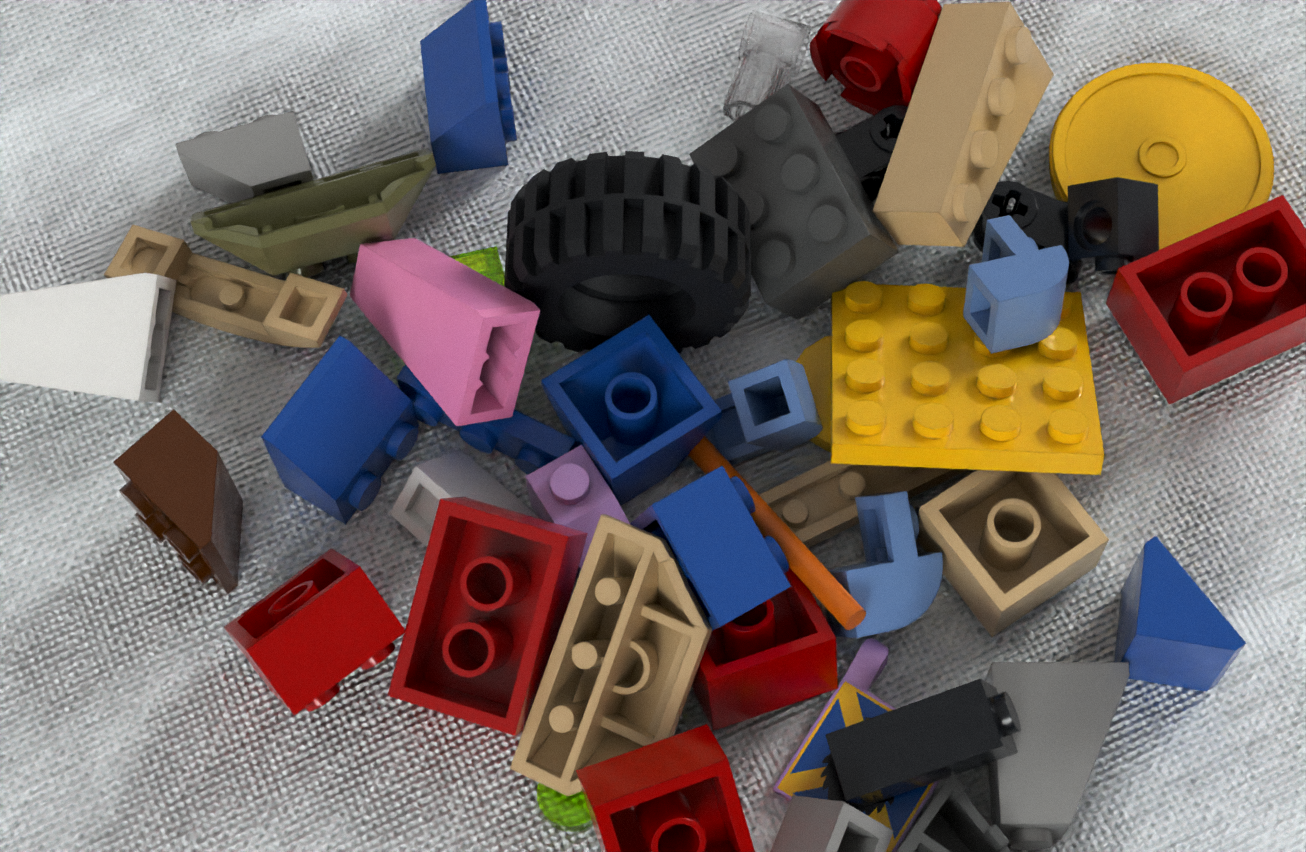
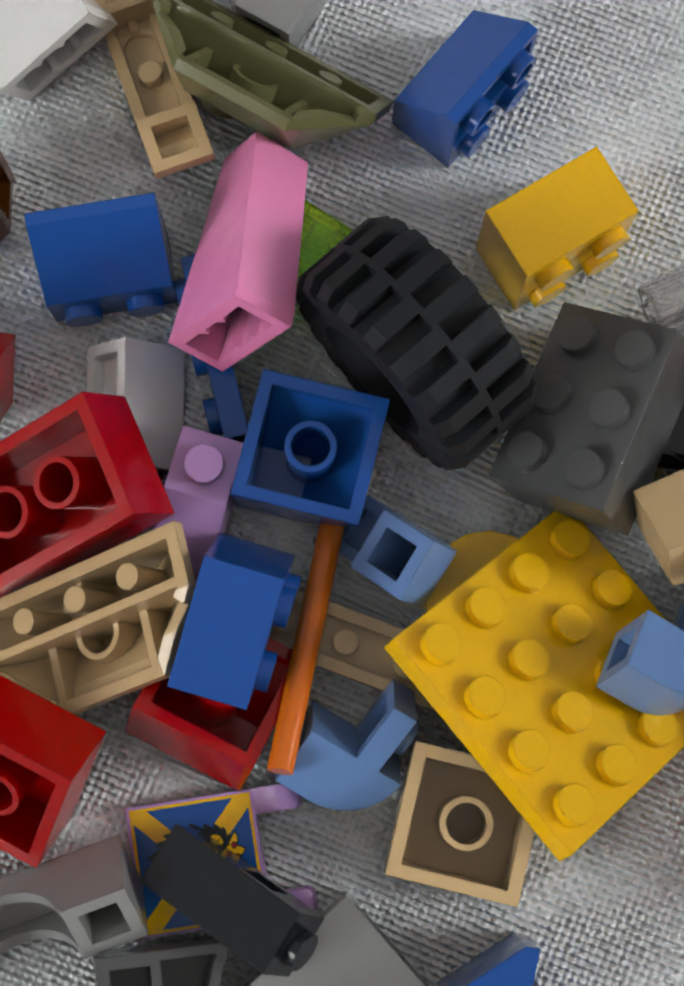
camera: 45 degrees right, 15 degrees up
(635, 97) = (556, 230): none -> yellow brick

